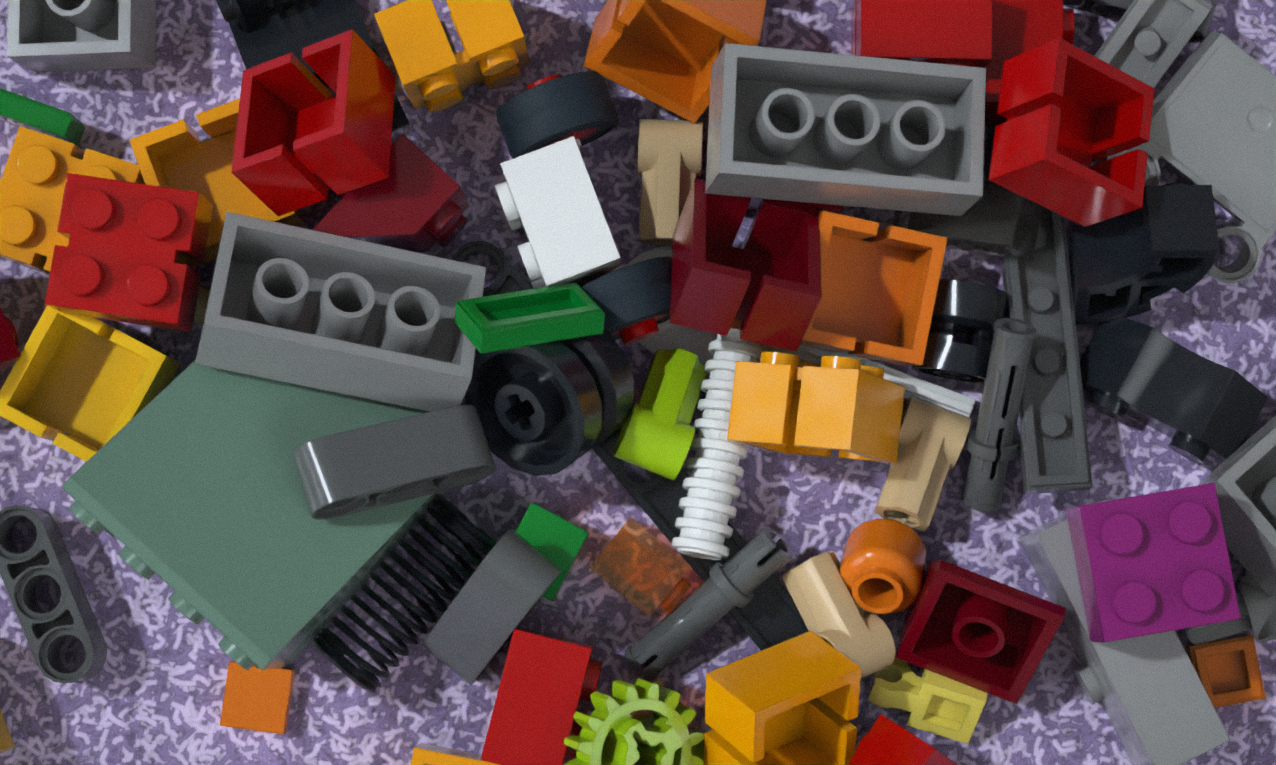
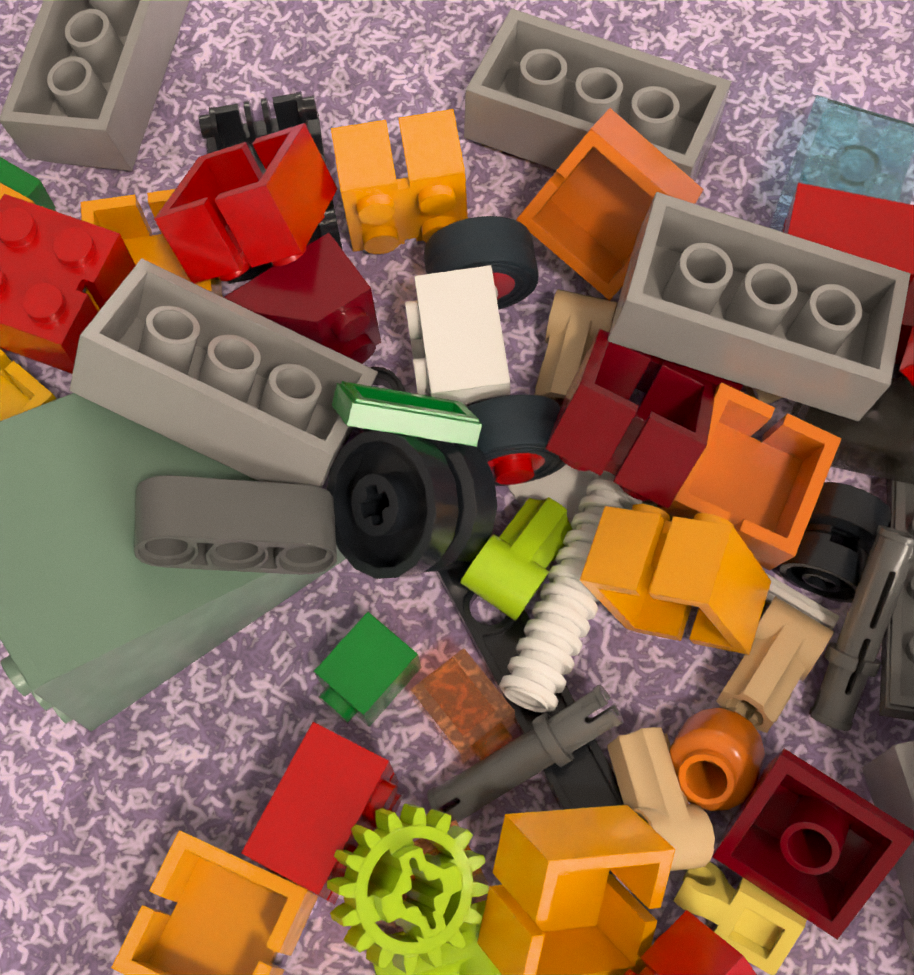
camera: 15 degrees right, 15 degrees down
(257, 698) = (47, 755): orange tile -> none
(456, 524) = (279, 608): black piece -> none
(491, 606) = (312, 682): dark grey beam -> none

